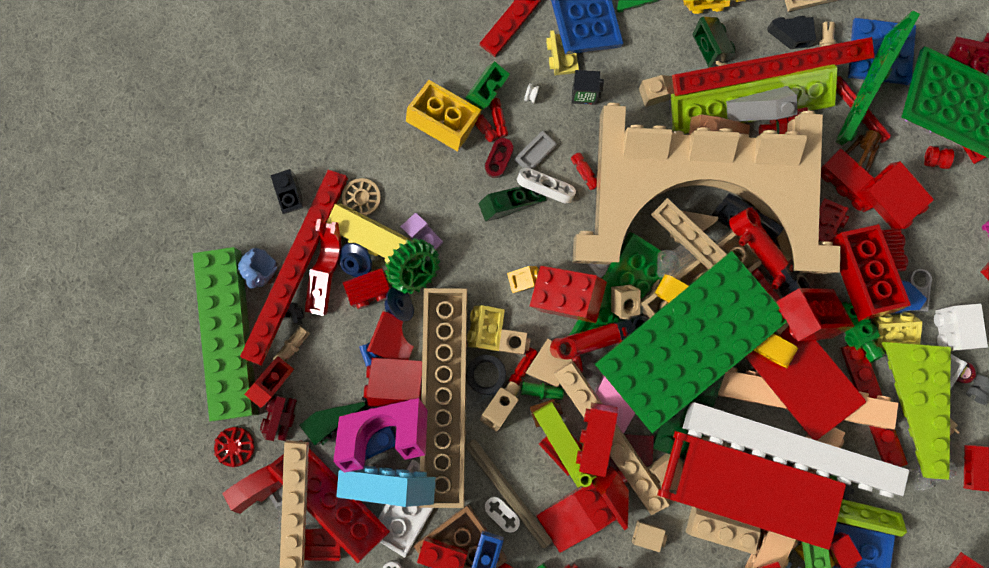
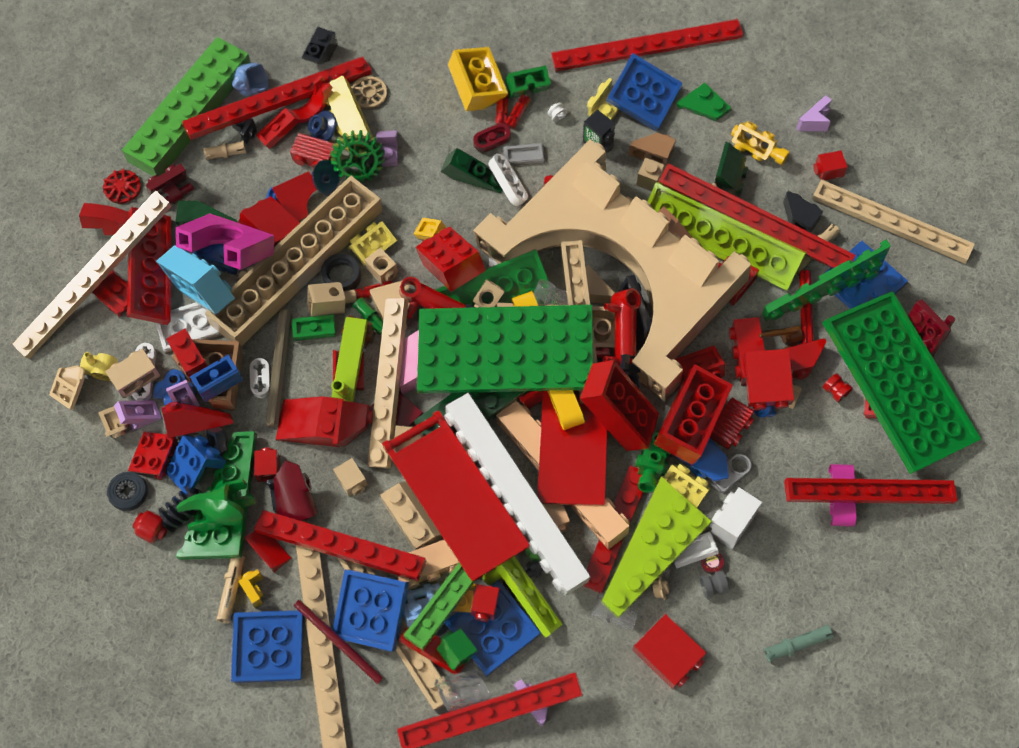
camera: 35 degrees right, 15 degrees down
(269, 382) = (191, 155): red brick -> none
(506, 438) = (313, 327): none -> green plate
(597, 439) = (373, 365): red brick -> none
(638, 64) = (654, 147): none -> medium nougat slope
(763, 106) = (720, 239): light grey slope -> none
(896, 150) = (804, 357): none -> red slope

